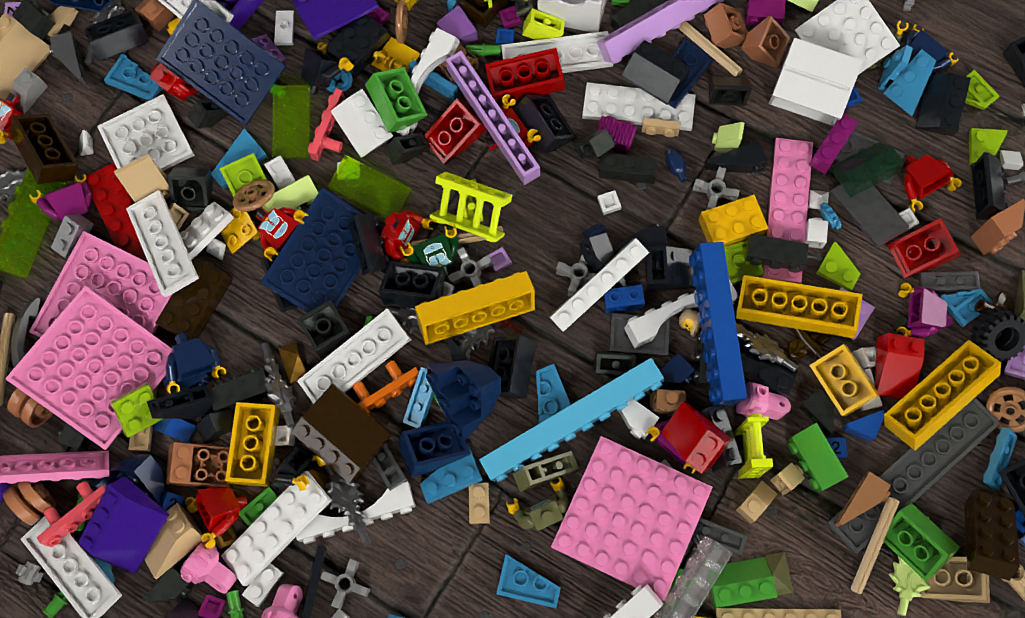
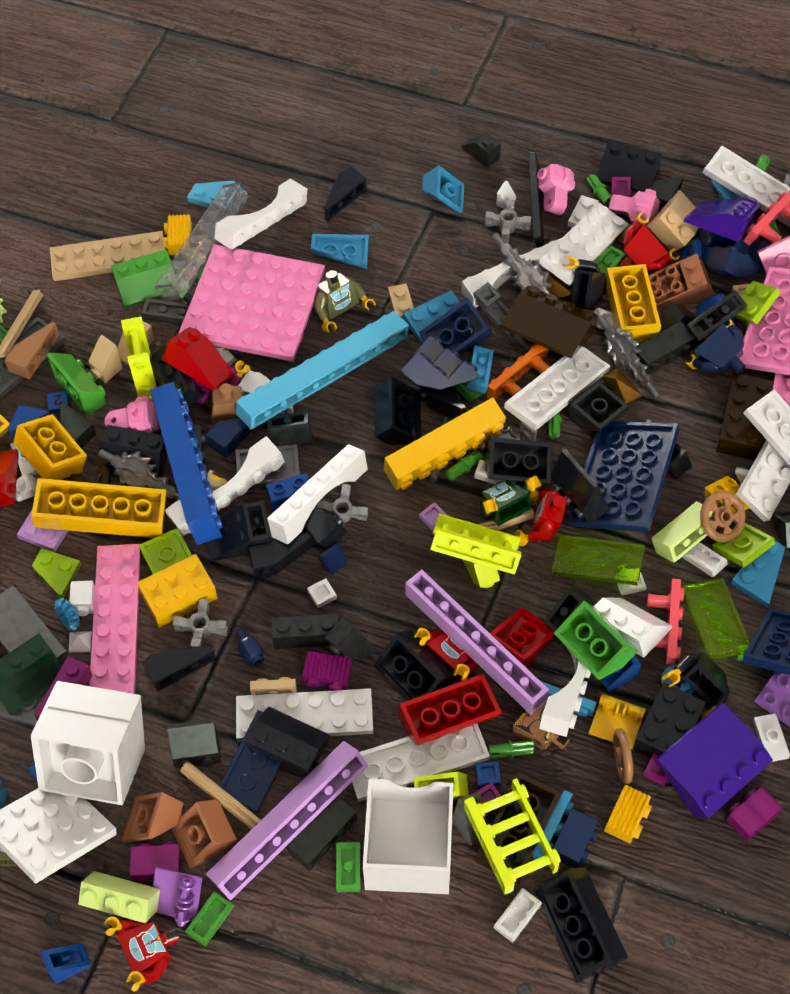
camera: 165 degrees right, 15 degrees down
(277, 228) = (681, 484): torso -> none
(458, 25) = (553, 765): medium lavender torso -> none
(458, 276) = (460, 495): light grey pin -> none
(545, 471) = (348, 323): olive slope -> none
(550, 392) = (349, 397): dark azure wing -> none
(728, 137) = (190, 682): yellowish green slope -> none
(776, 253) = (126, 559): pearl dark grey brick -> none
(779, 568) = (110, 296): olive slope -> none

